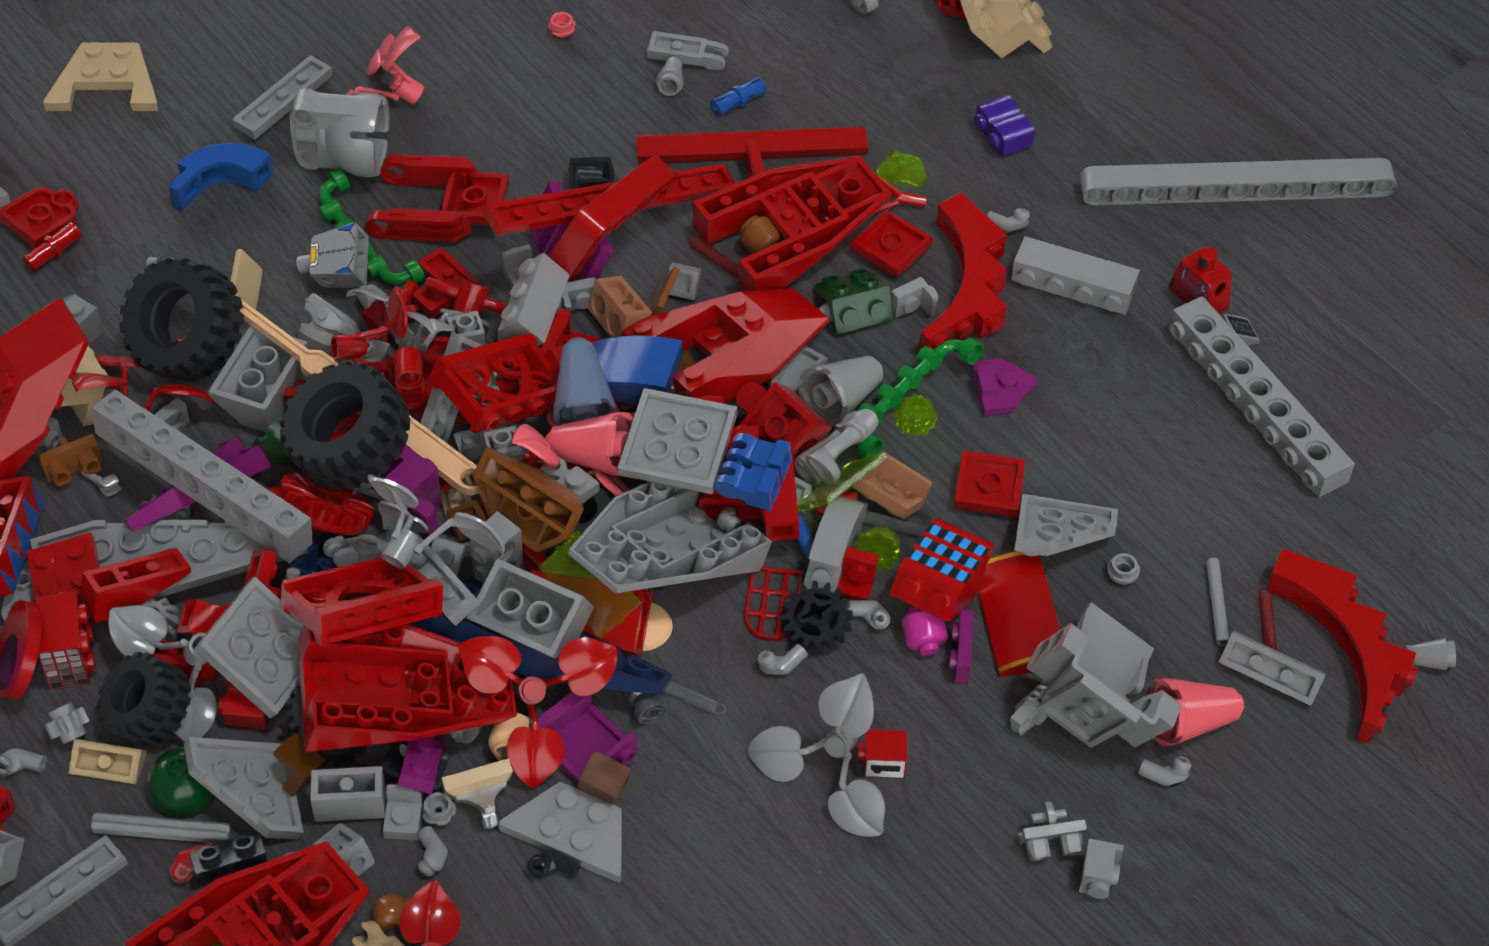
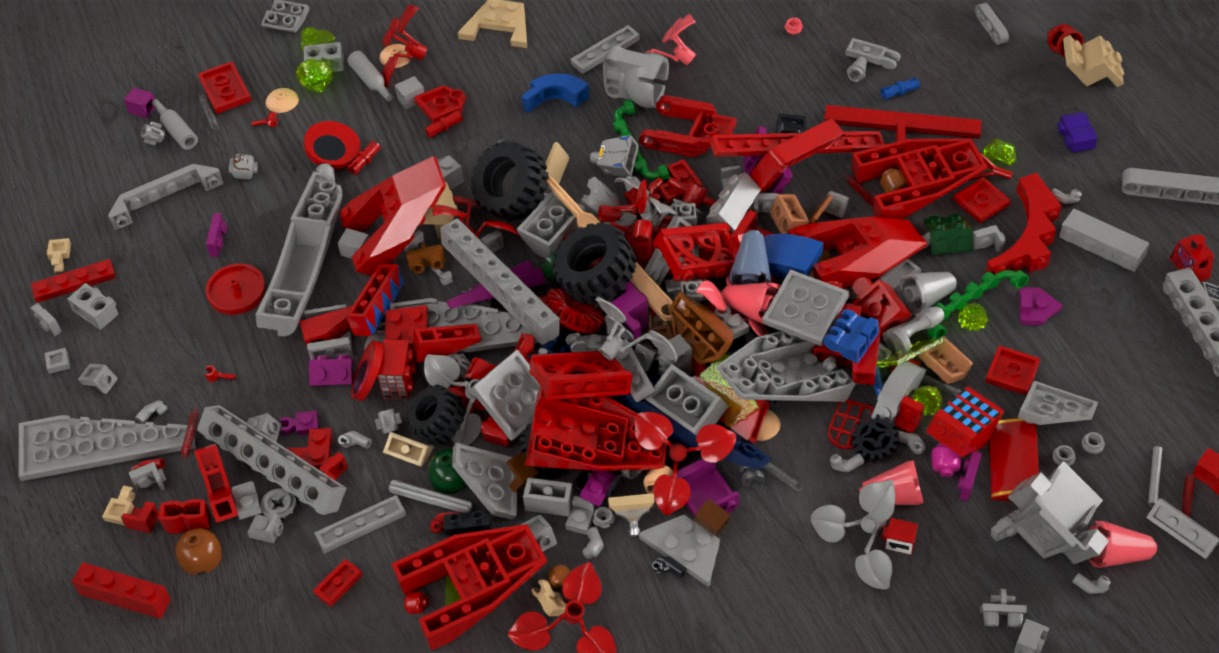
camera: 20 degrees right, 0 degrees up
(879, 670) = (905, 483): none -> coral cone
(1087, 588) = (1065, 451): none -> light grey plate

